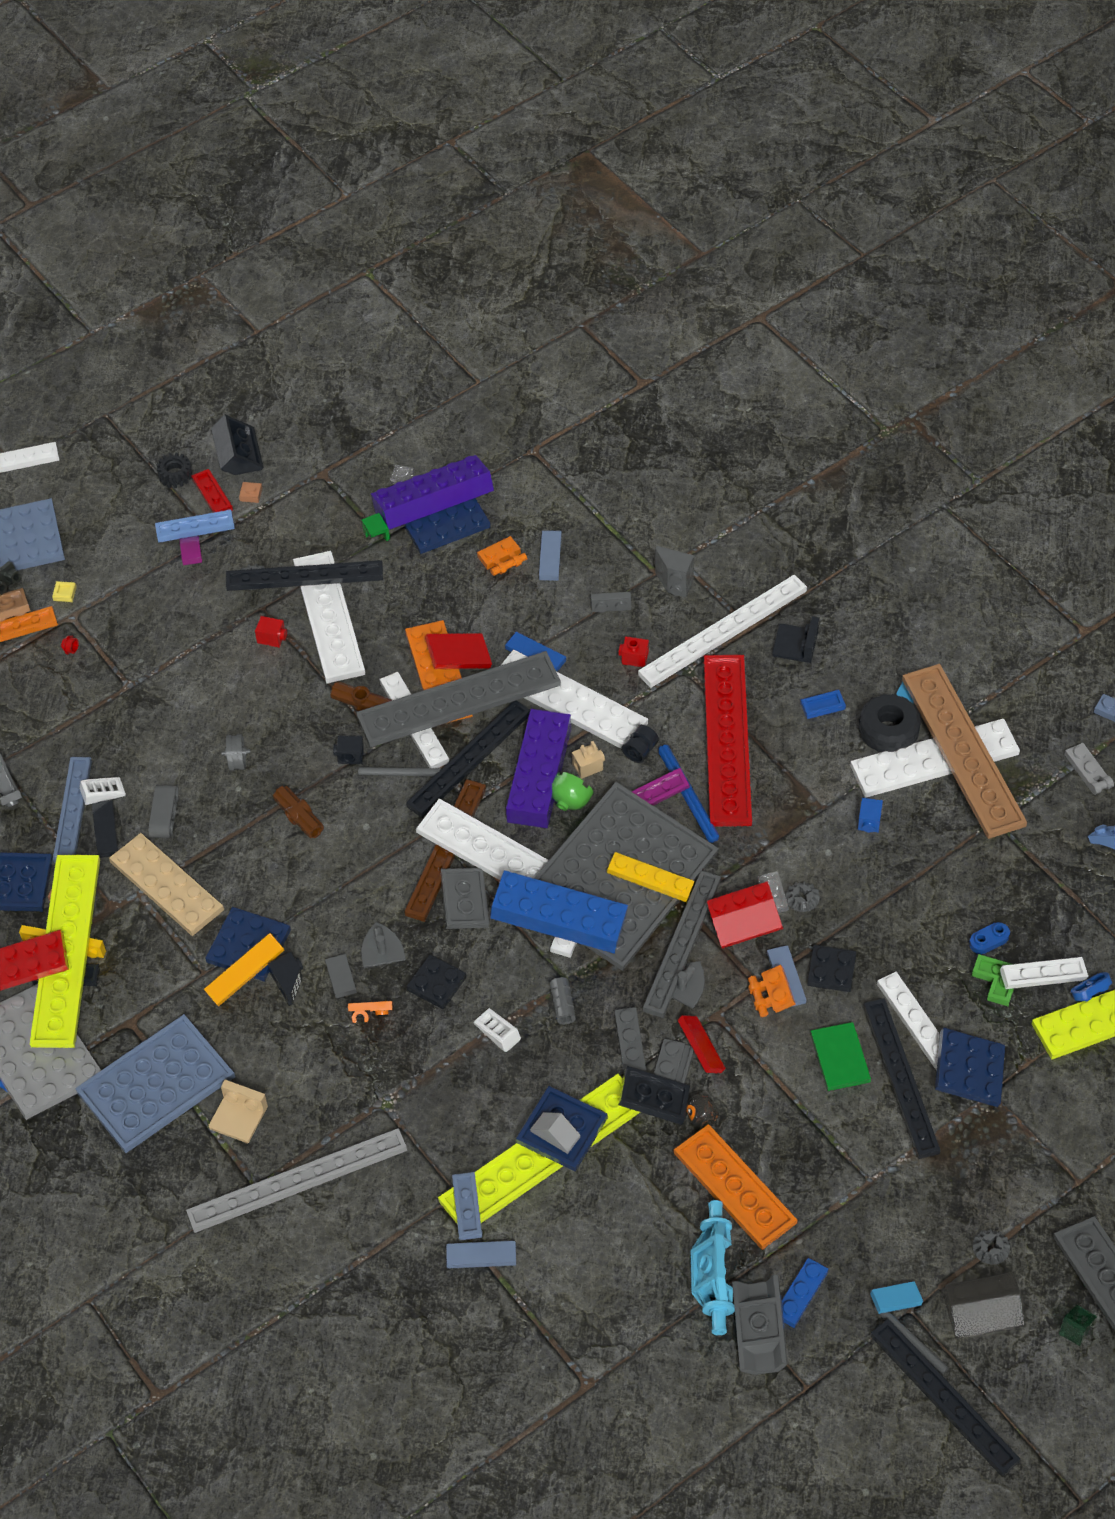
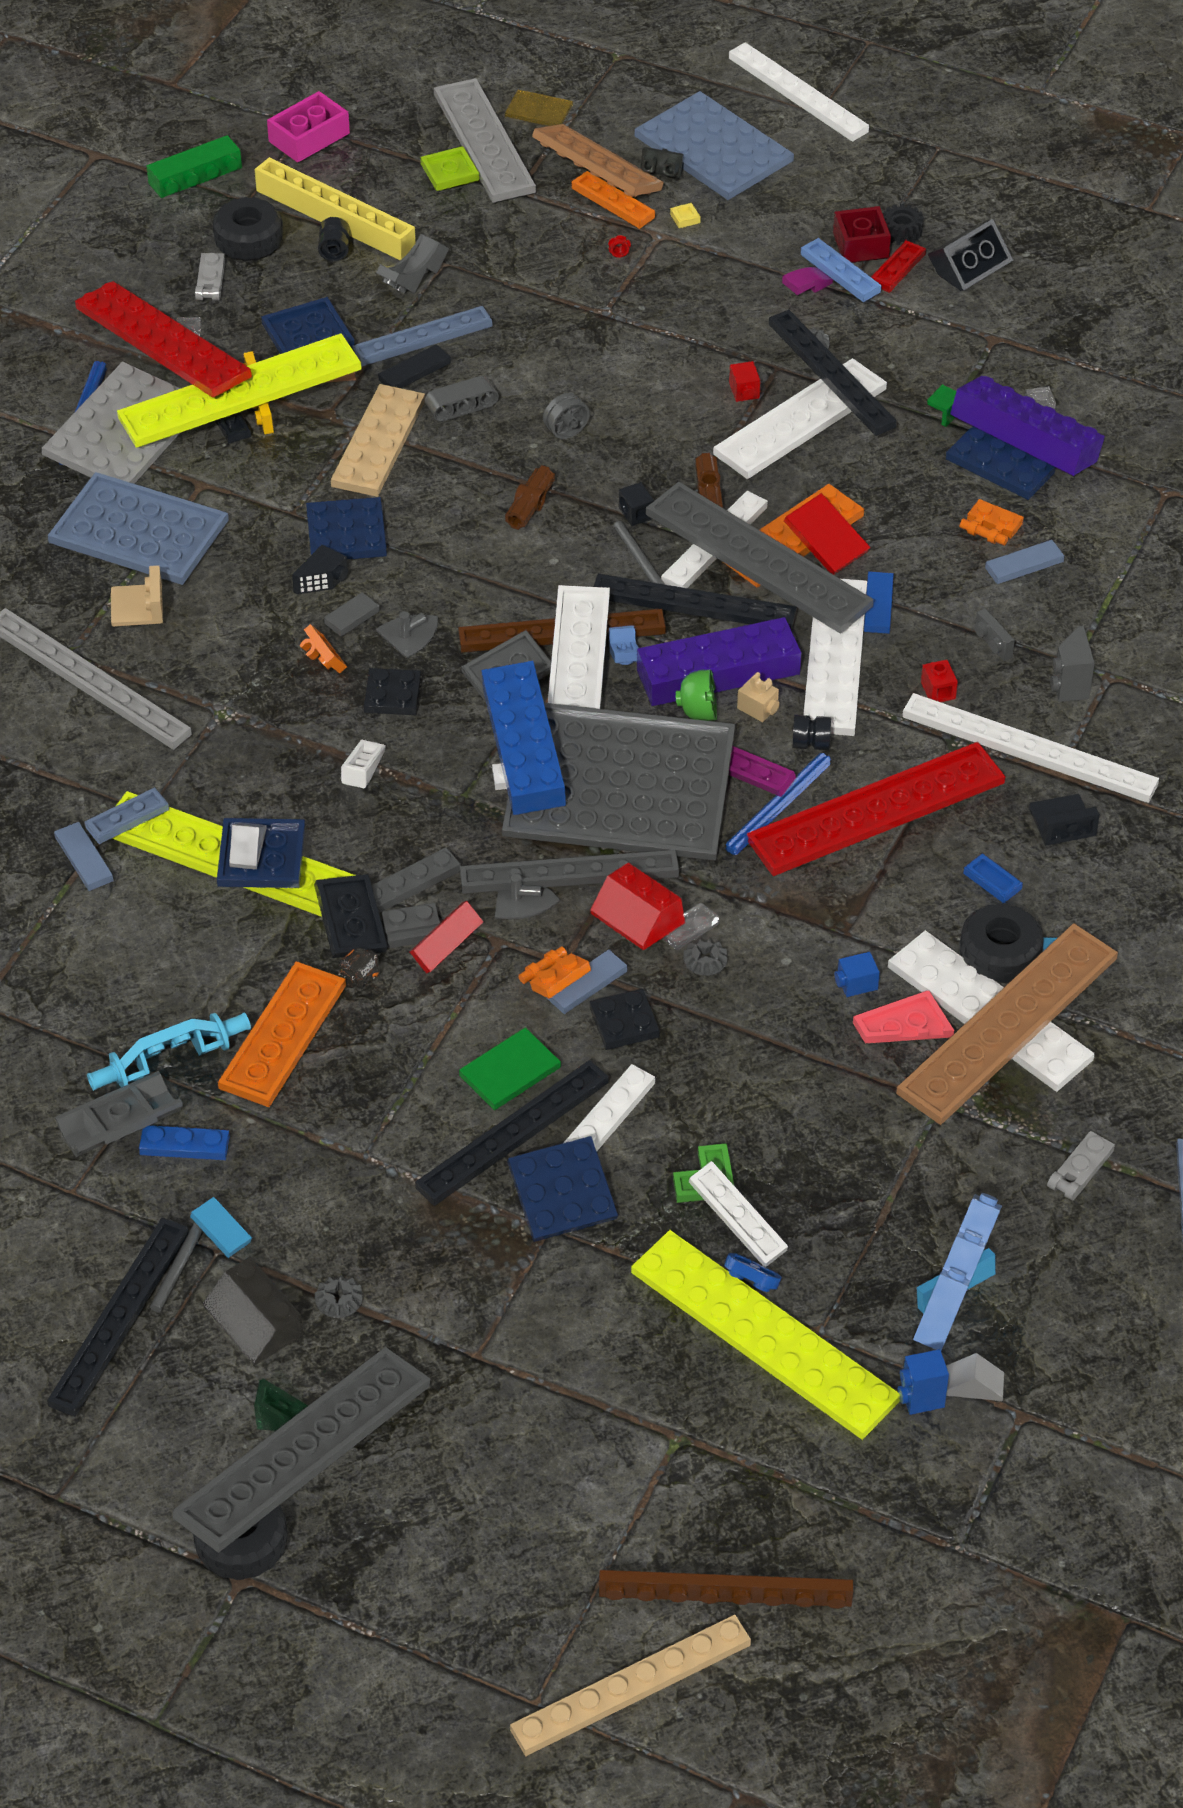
camera: 60 degrees right, 5 degrees down
(94, 784) = (449, 329): white slope -> none
(173, 496) = (861, 234): none -> dark red brick
(244, 969) = (306, 533): light orange tile -> none
(250, 492) = (921, 294): nougat plate -> none
(491, 817) = (623, 644): none -> medium blue bracket
(562, 1000) = (429, 799): dark grey axle -> none
(650, 877) = (630, 805): yellow plate -> none
(922, 807) = (904, 1020): none -> coral wing
(991, 938) = (761, 1152): blue plate -> none

